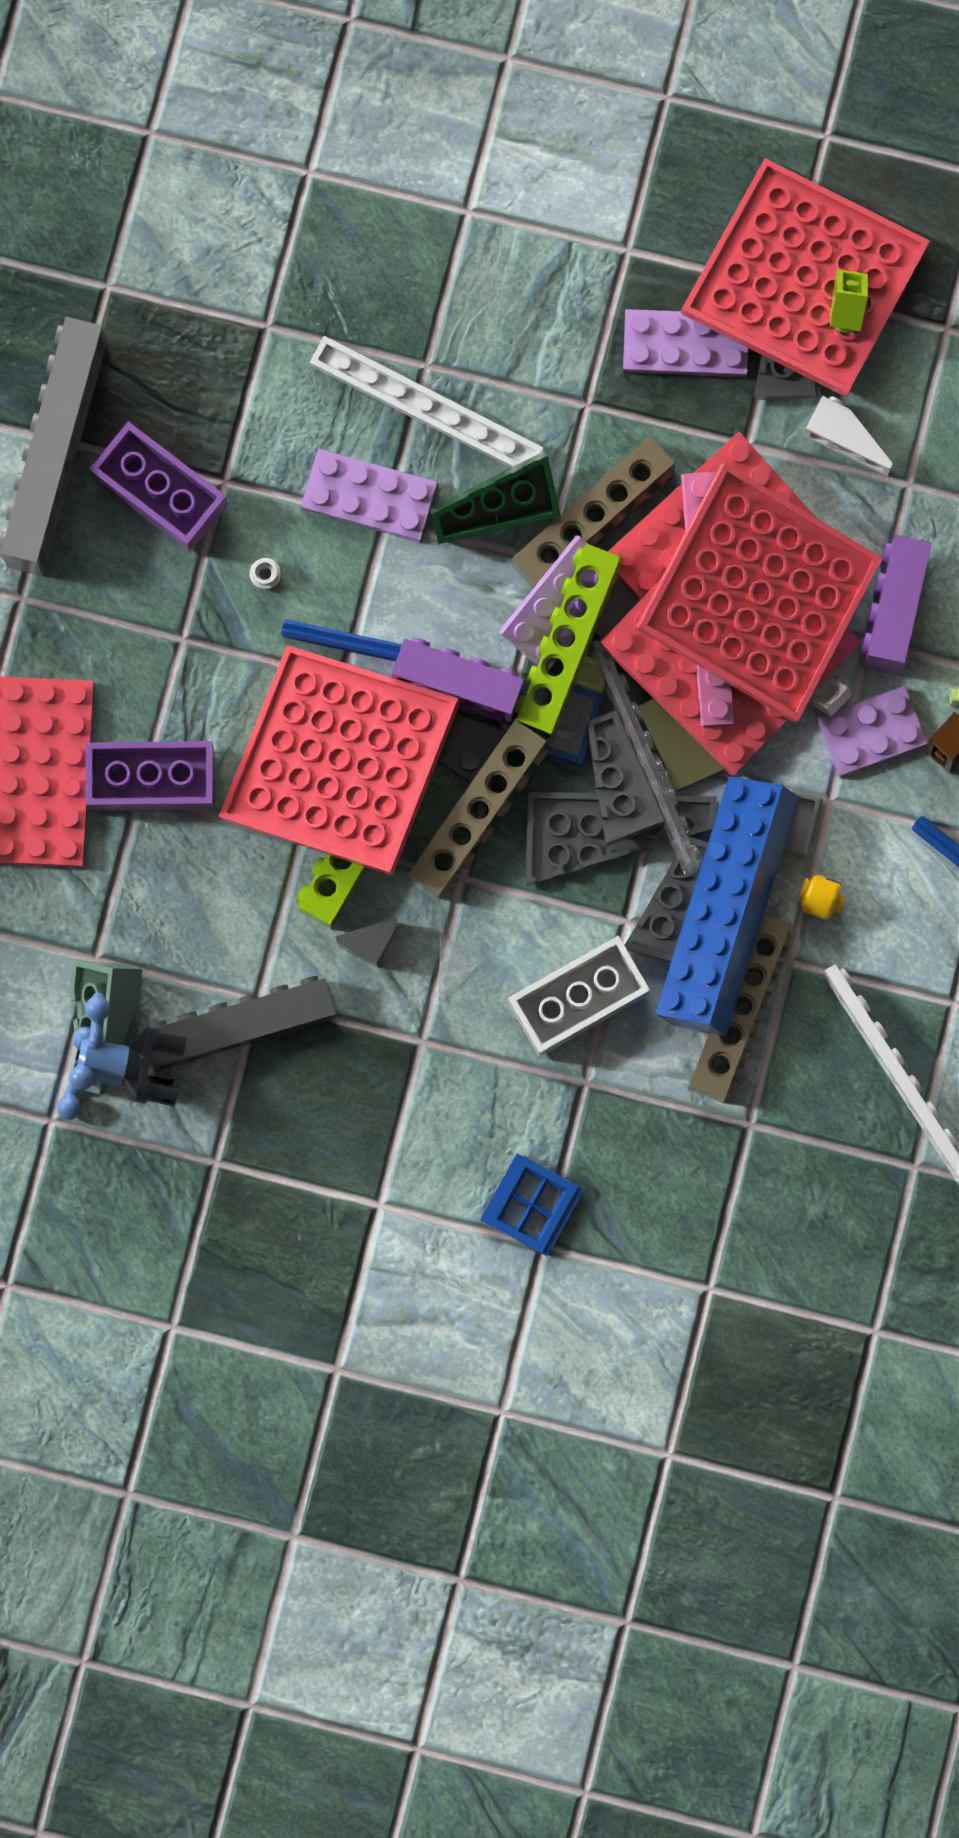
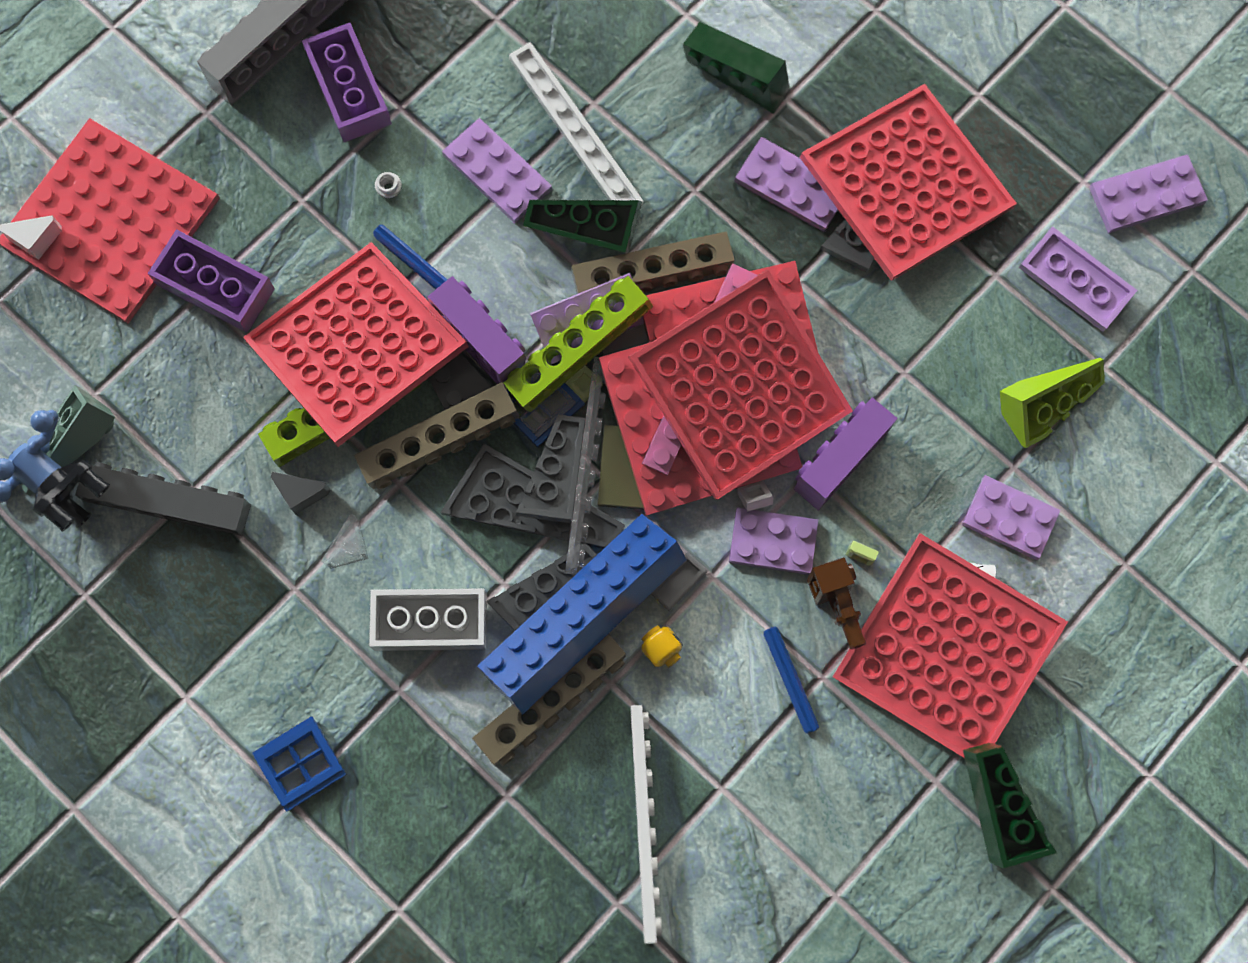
camera: 25 degrees right, 5 degrees down
(558, 244) = (739, 65): none -> dark green wedge
(842, 432) = (874, 306): white slope -> none
(849, 301) = (930, 210): lime slope -> none

